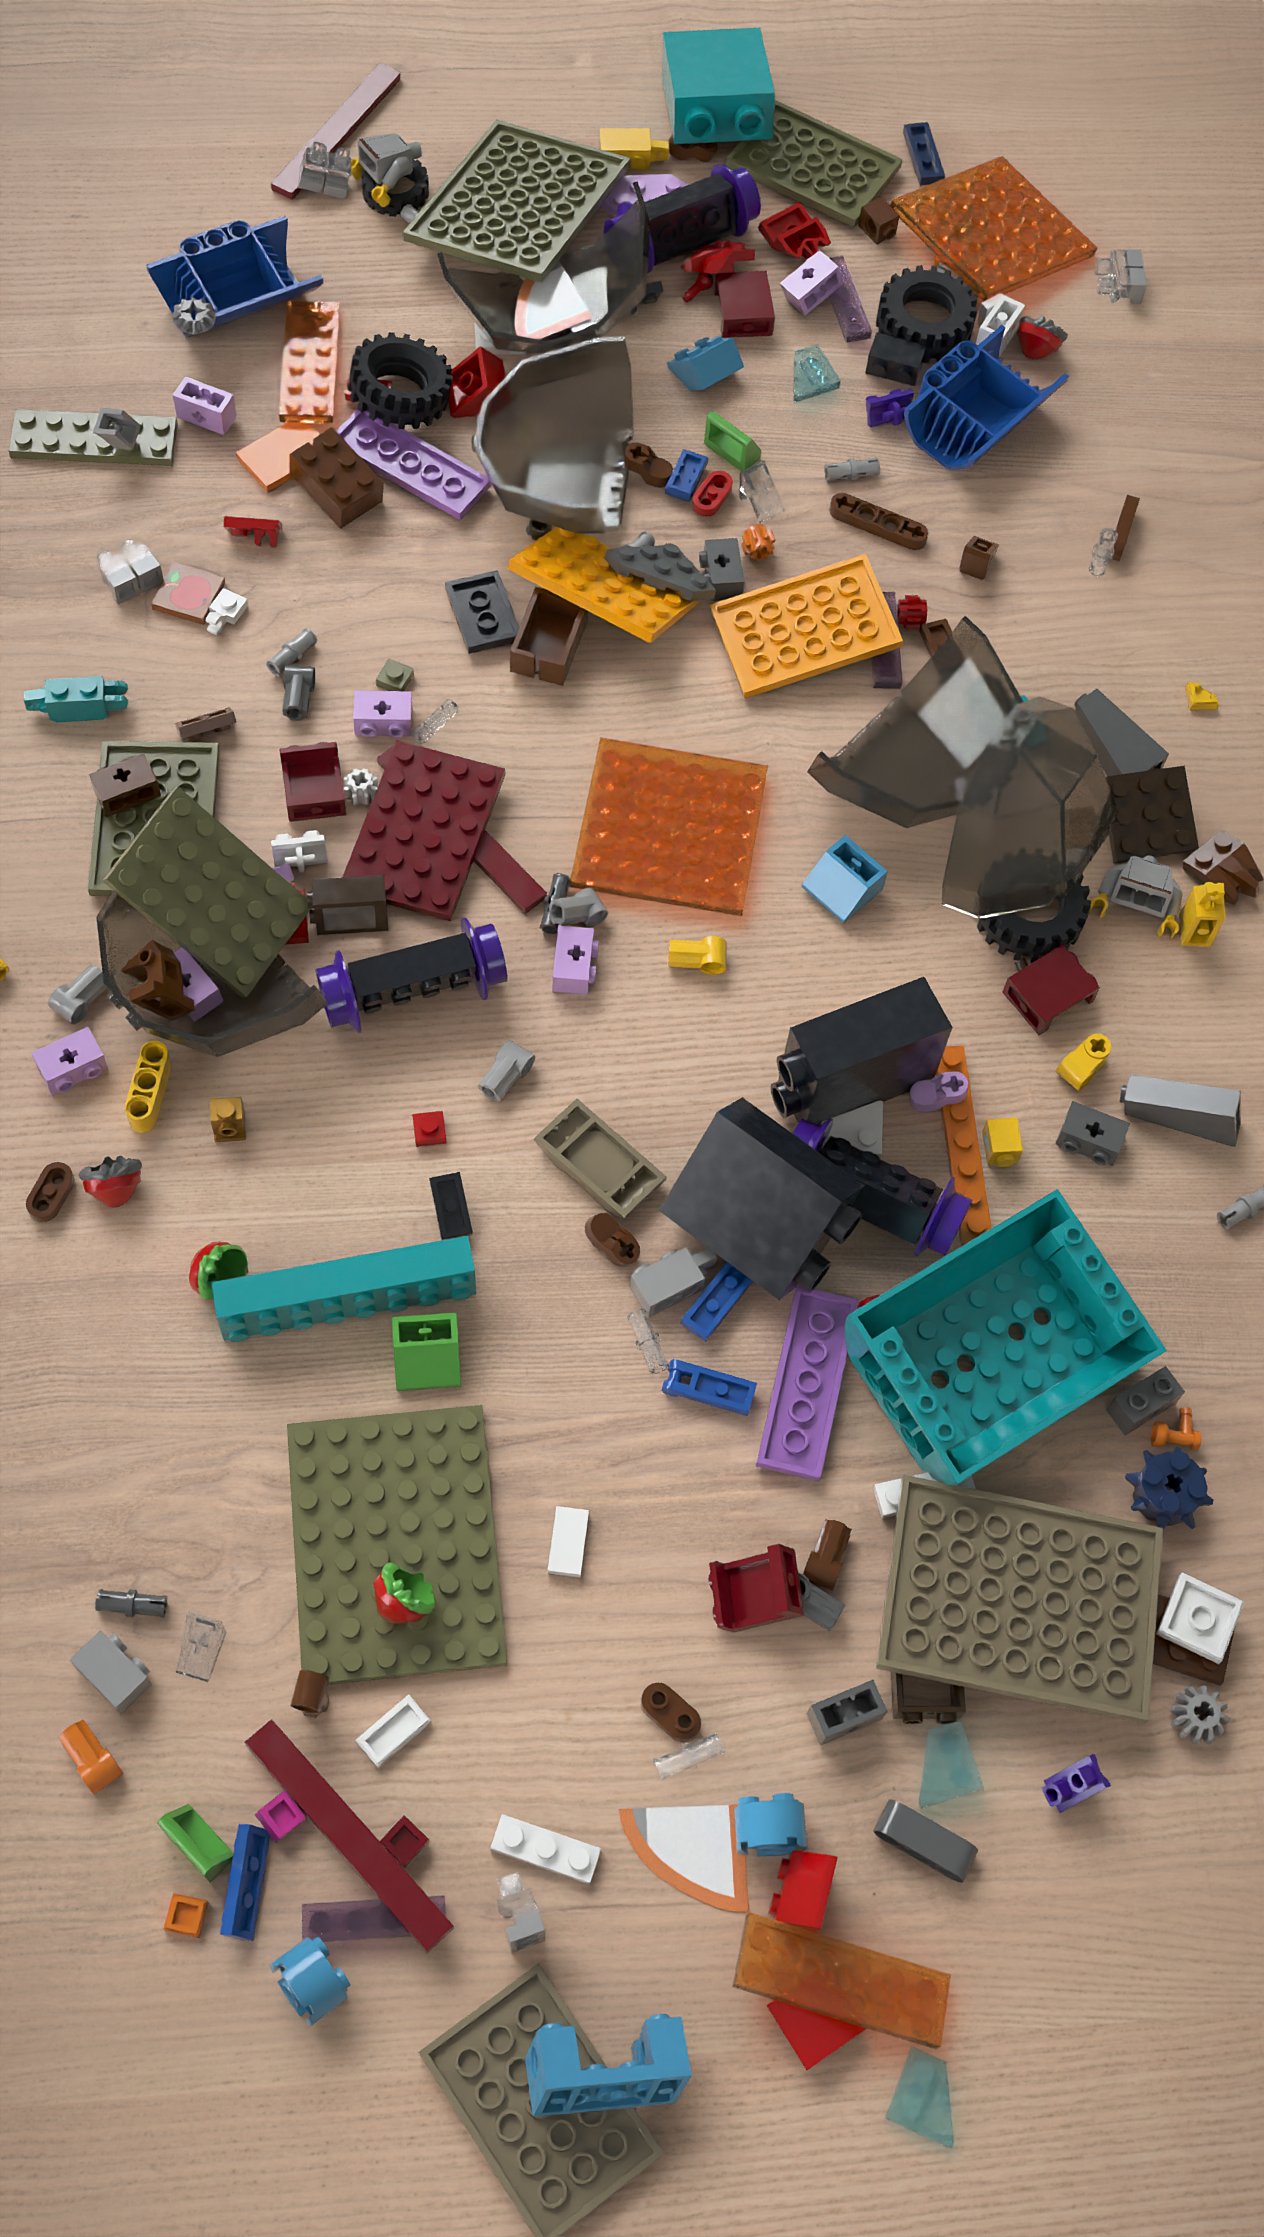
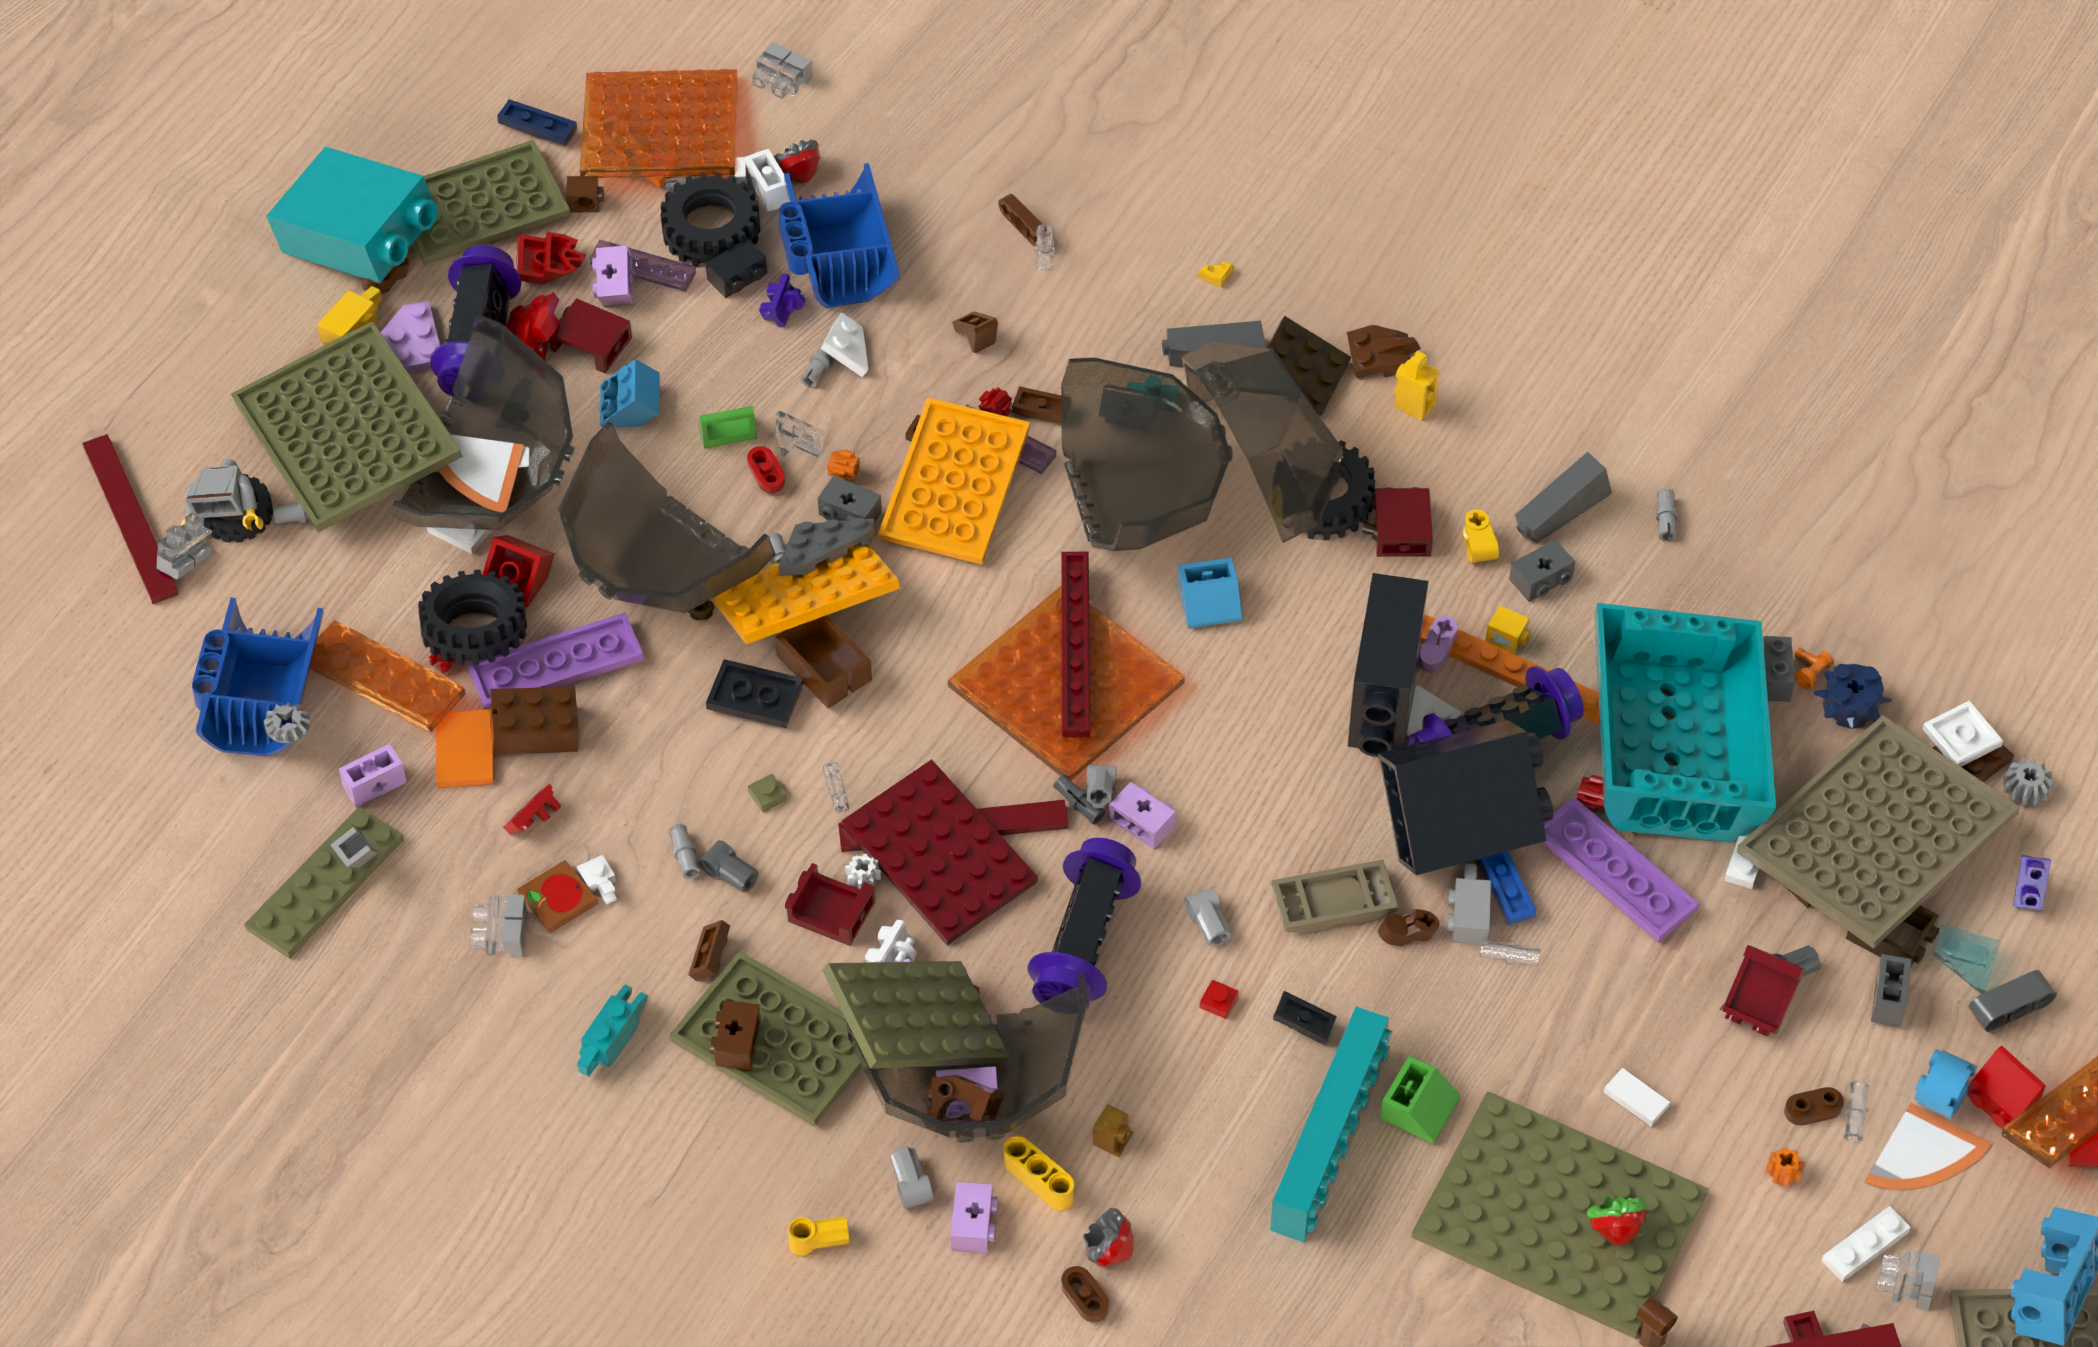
camera: 50 degrees left, 10 degrees down
(216, 1263) = (1245, 1207): bright green hair -> none
(348, 905) = (982, 934): dark brown window -> none
(382, 713) = (802, 818): lavender brick -> none
(393, 1731) = (1711, 1294): white tile -> none
(588, 1723) = (1785, 1166): none -> orange gear
(652, 469) = (707, 495): reddish brown piece -> none
(686, 475) = (732, 476): blue plate -> none
(705, 954) = (1203, 725): yellow piece -> none
(708, 808) = (1075, 645): none -> dark red tile
(710, 1387) = (1576, 933): blue plate -> none
(812, 374) = (701, 332): clear light blue wing -> none
(825, 1561) = (1760, 933): reddish brown piece -> none
(880, 517) = (886, 378): reddish brown beam -> none
(884, 474) = (847, 344): none -> white wing
(1144, 887) = (1363, 409): light grey torso -> none

